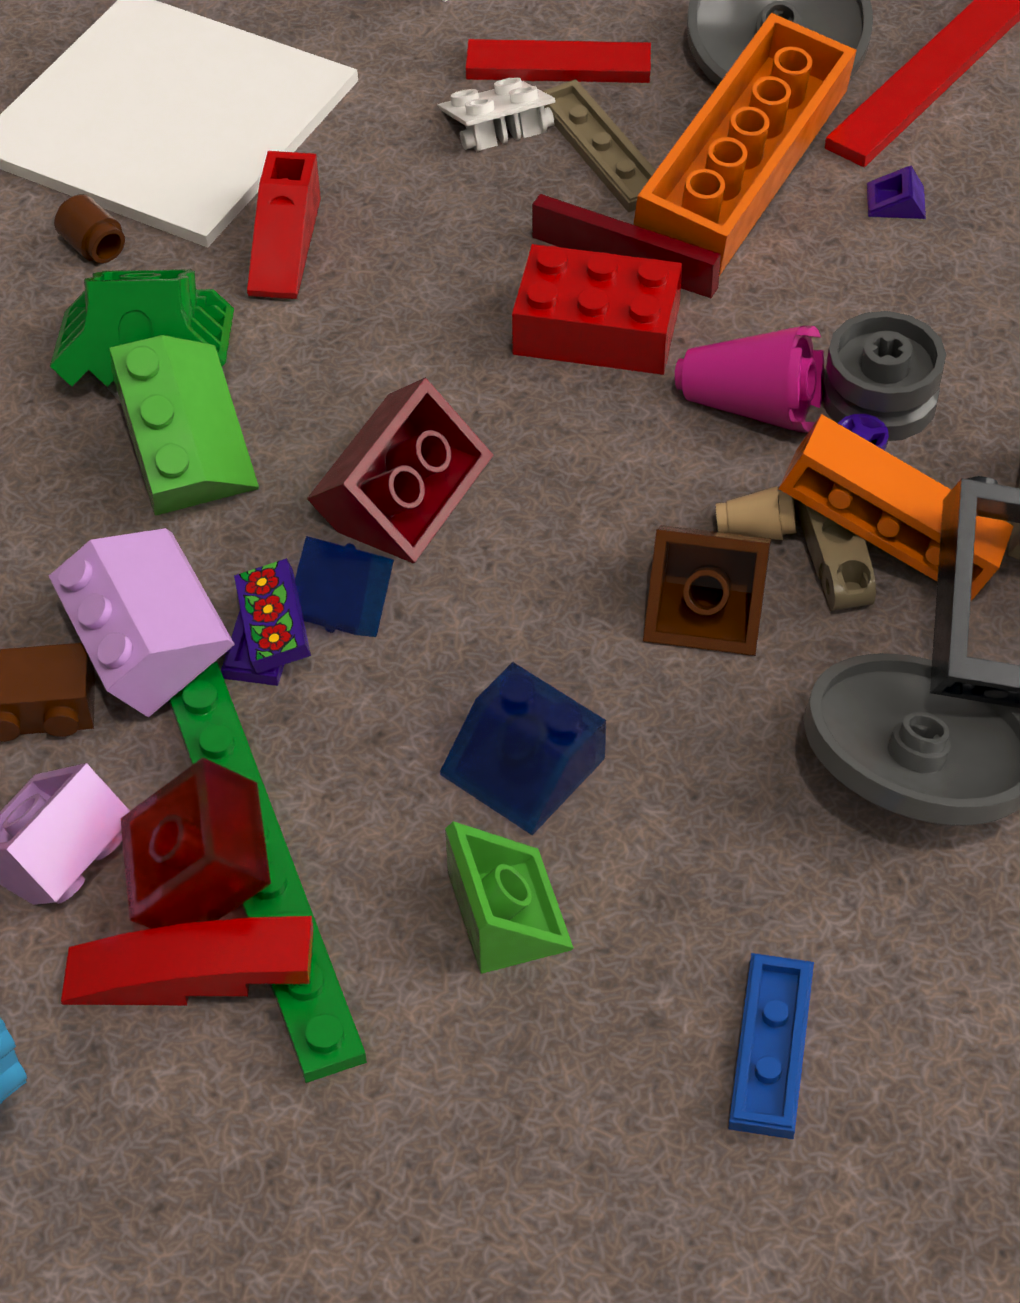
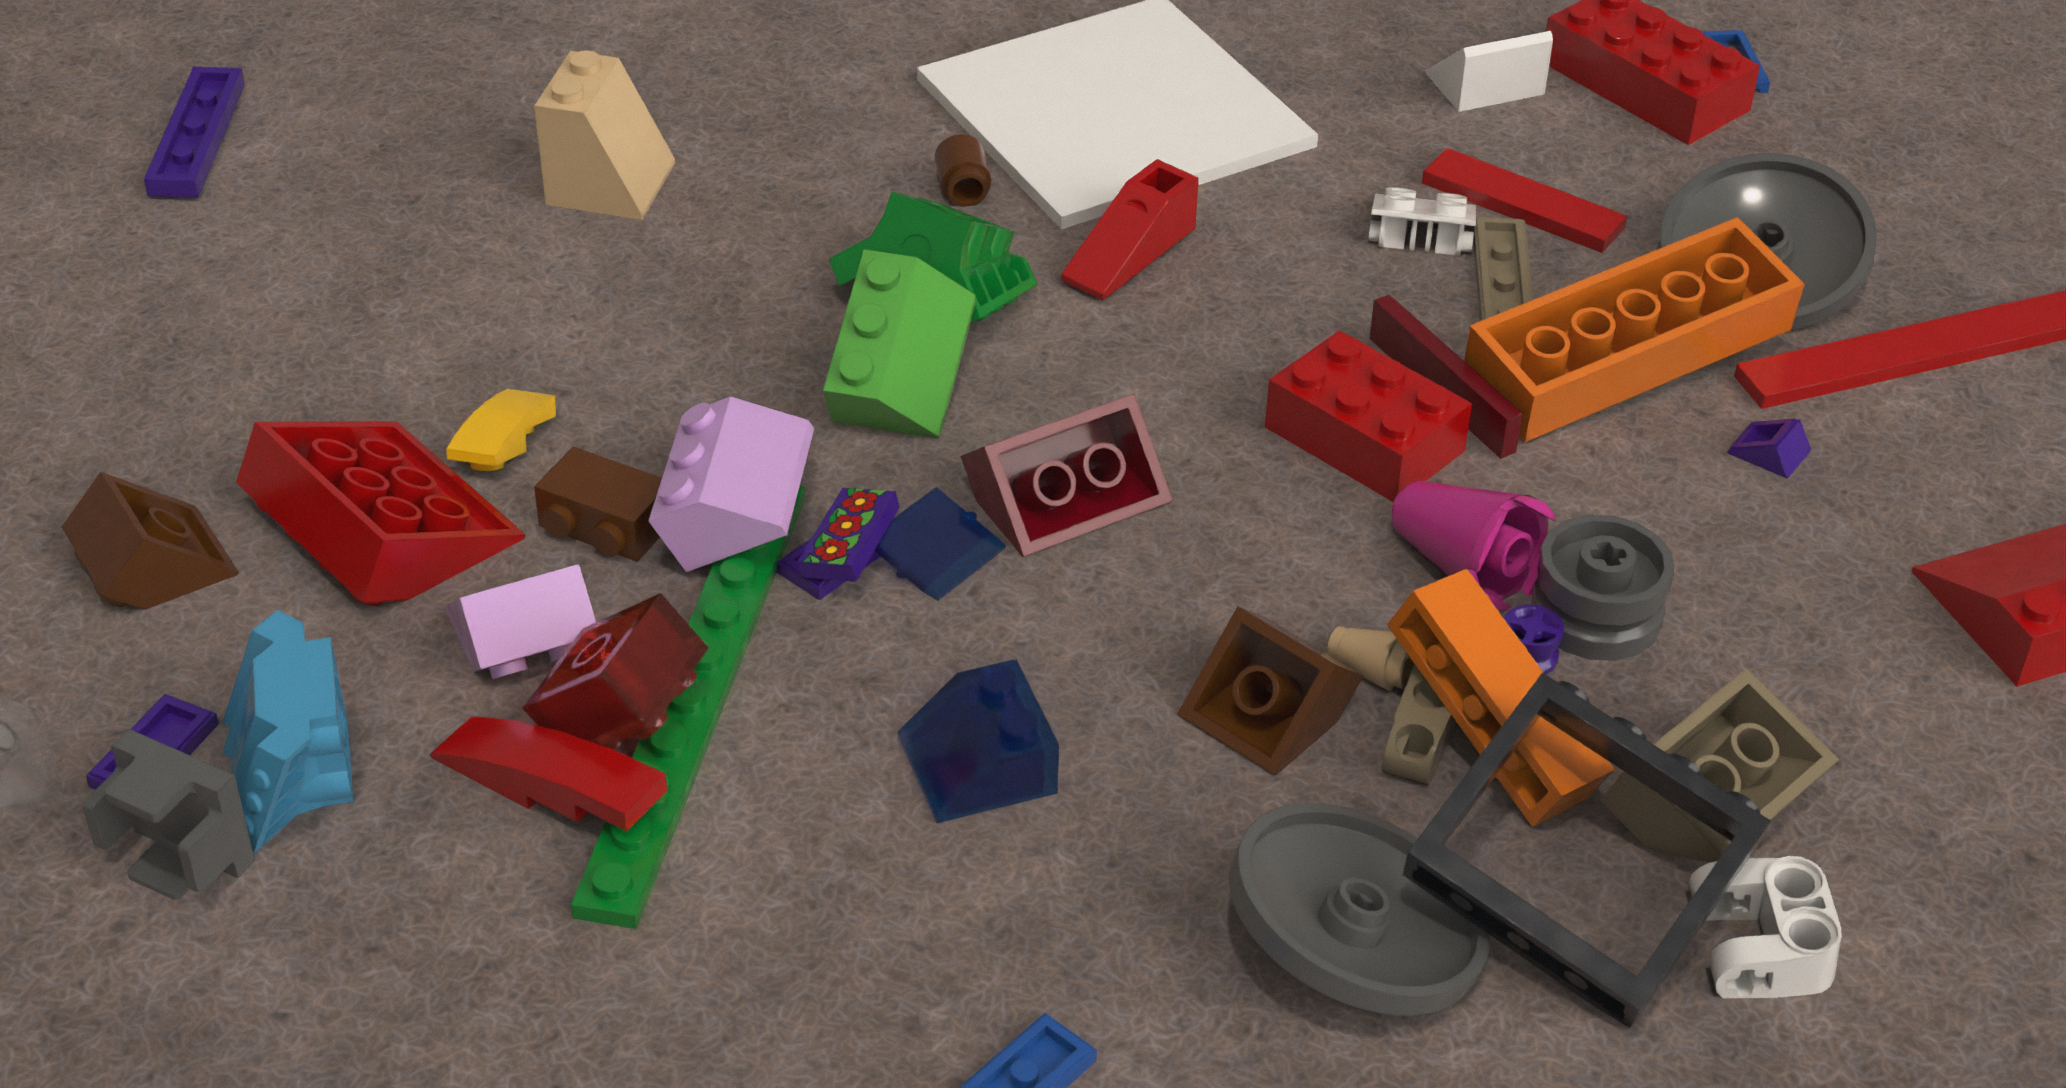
camera: 30 degrees right, 10 degrees down
(503, 898) = (855, 851): bright green slope -> none

